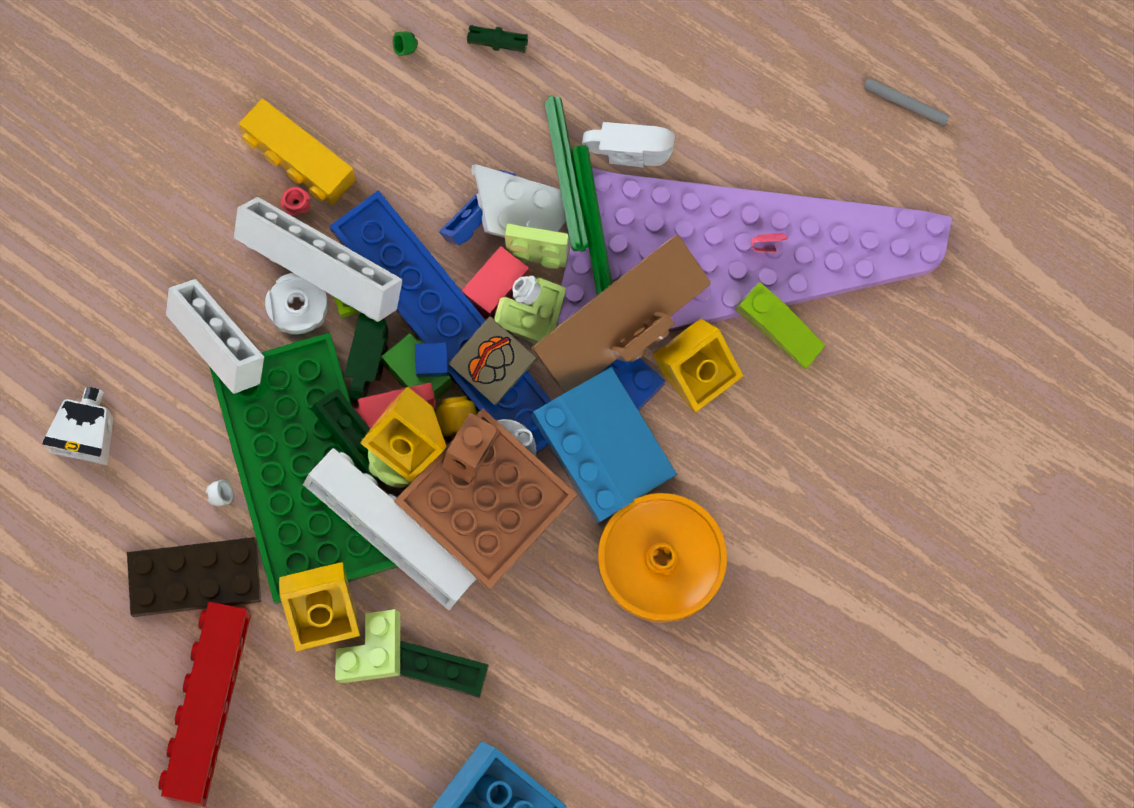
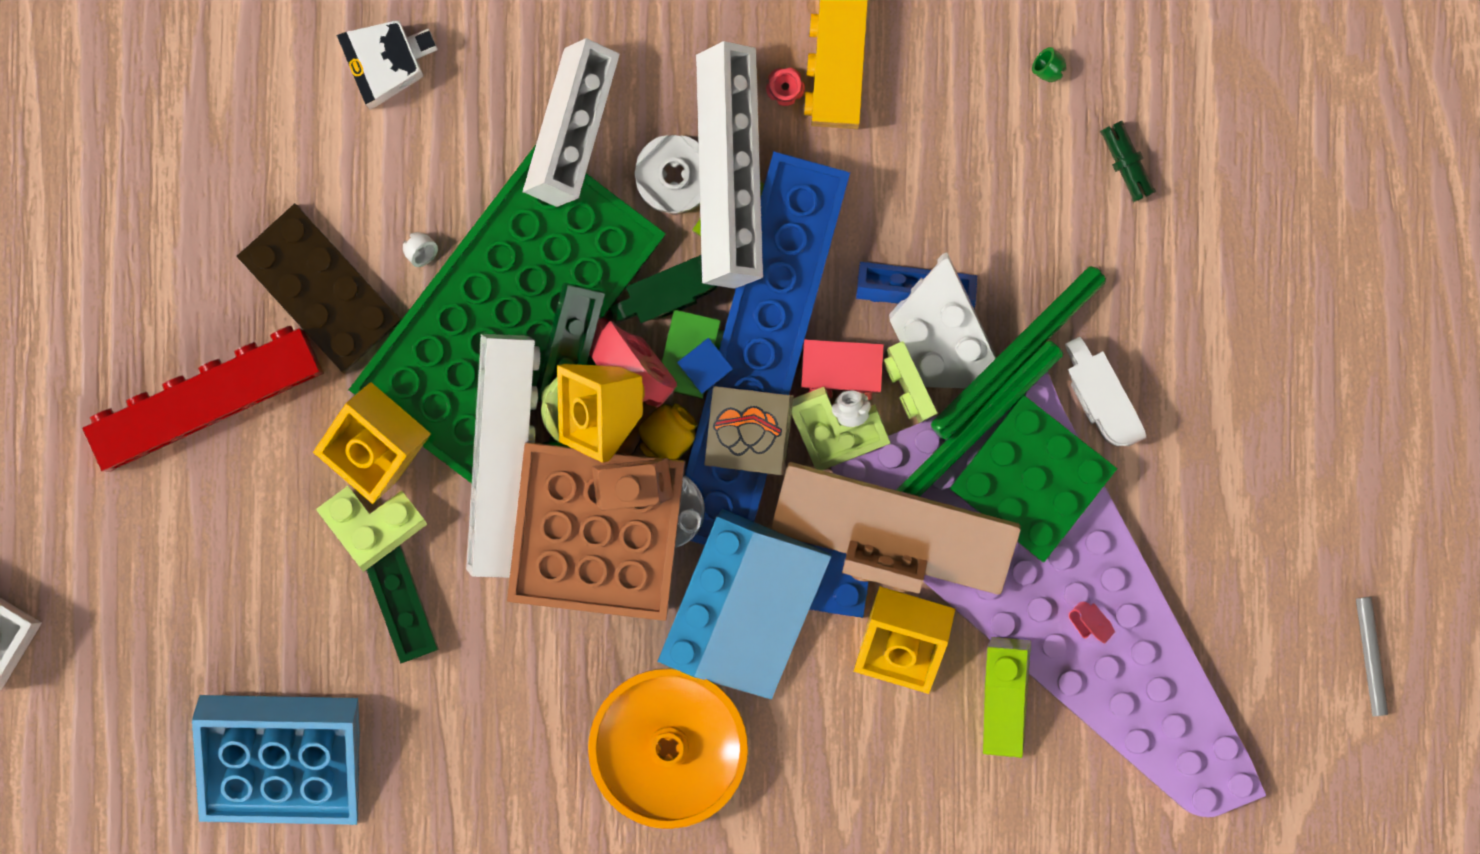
camera: 55 degrees right, 15 degrees up
(648, 211) = (1034, 477): none -> green plate

